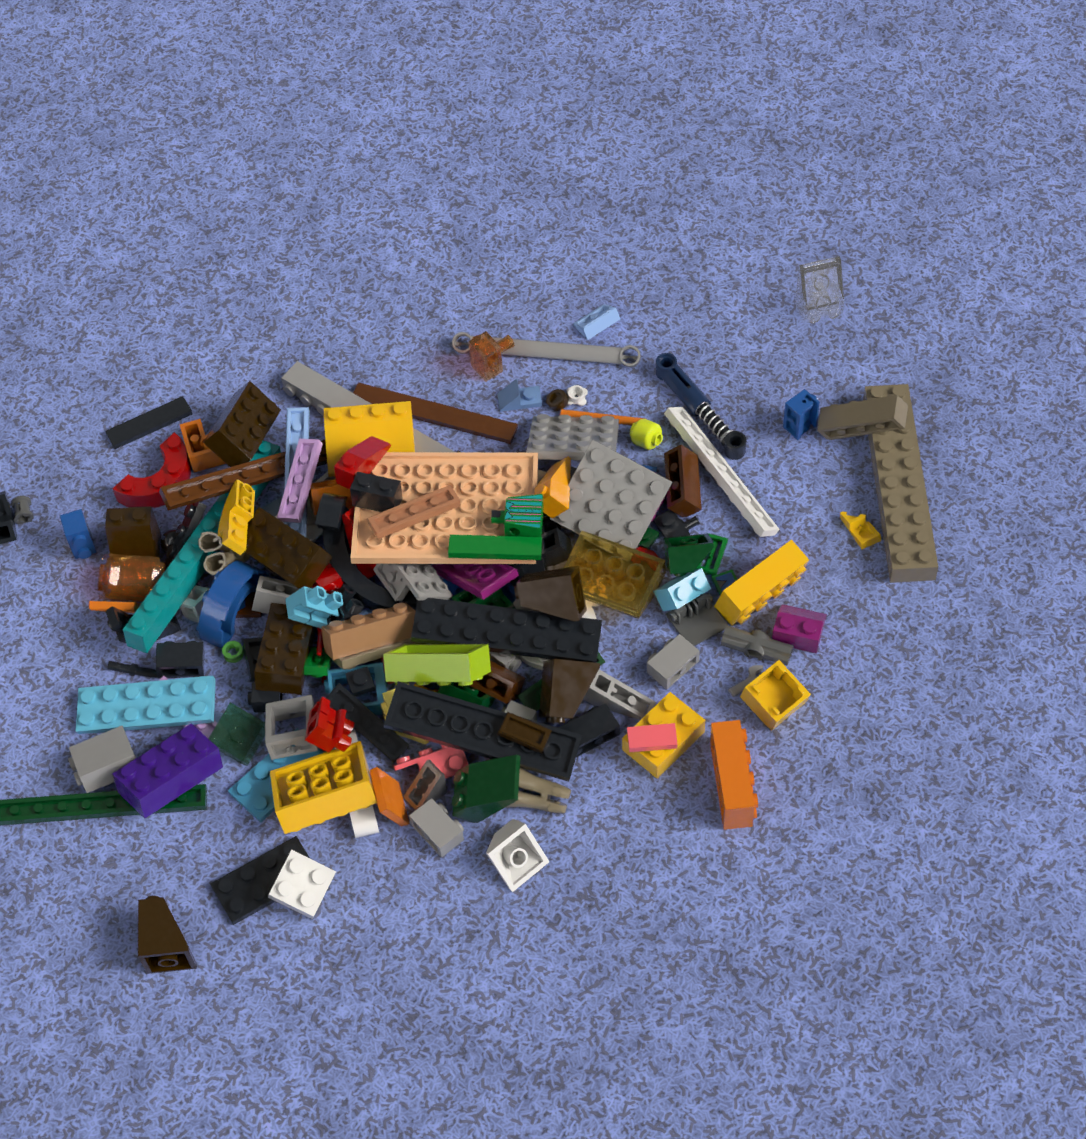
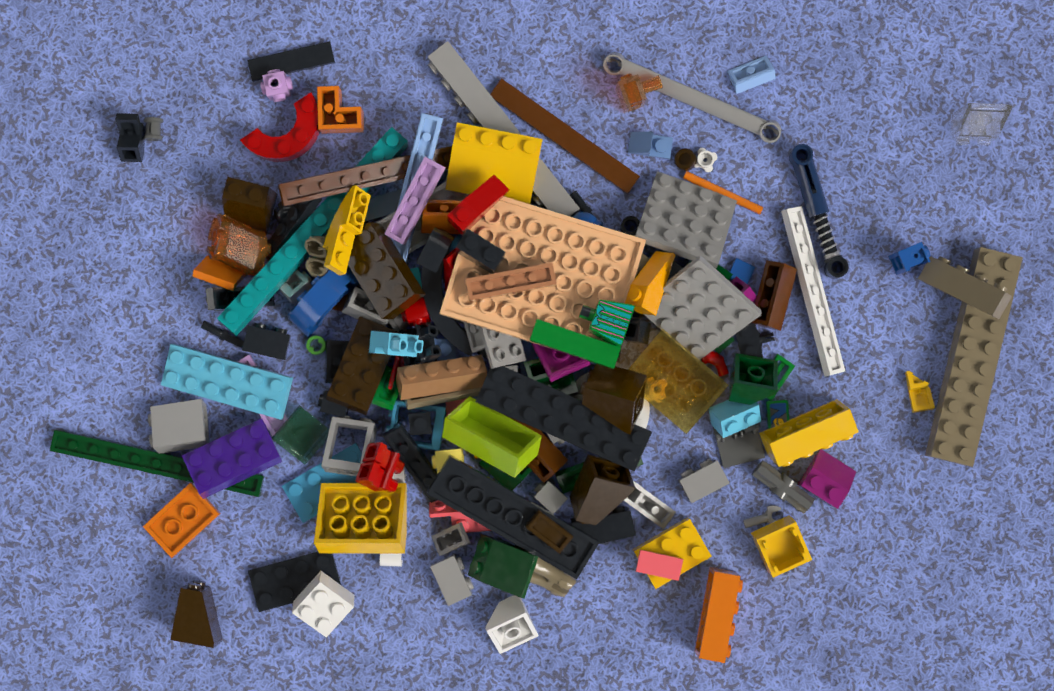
camera: 15 degrees right, 30 degrees up
(78, 534) = (198, 181): blue brick -> none
(125, 854) = (181, 520): none -> orange plate
(139, 441) = (283, 88): none -> lavender brick
(242, 425) = (376, 111): dark brown brick -> none
(389, 797) = (417, 543): orange tile -> none
(646, 434) = (757, 228): neon yellow head -> none

